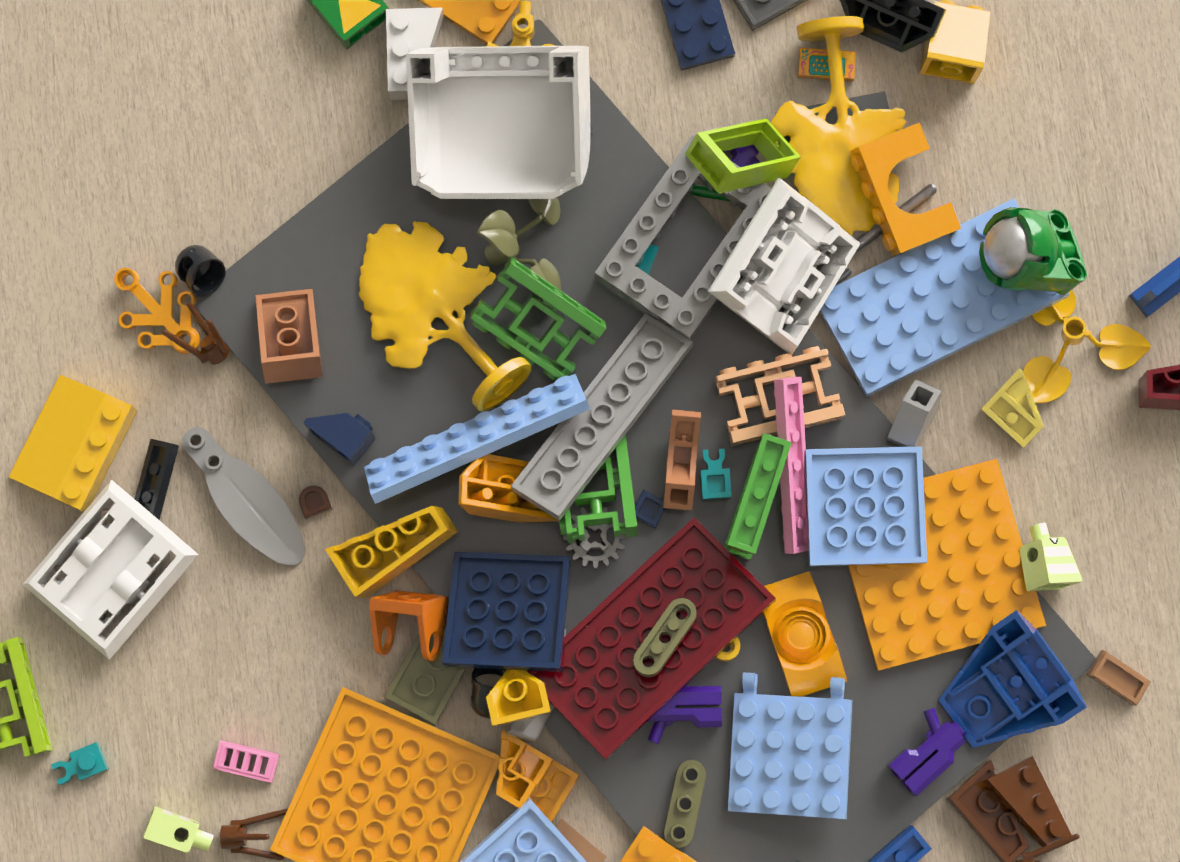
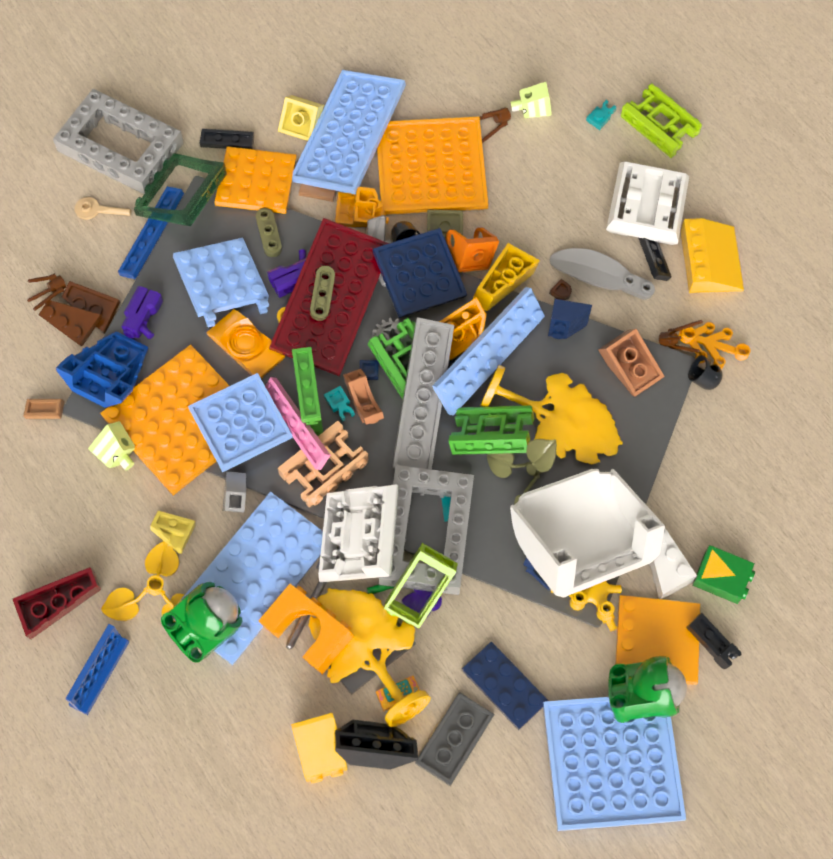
camera: 155 degrees right, 15 degrees down
(222, 753) = (519, 157): bright pink slope -> none
(517, 698) = (389, 225): yellow slope -> none

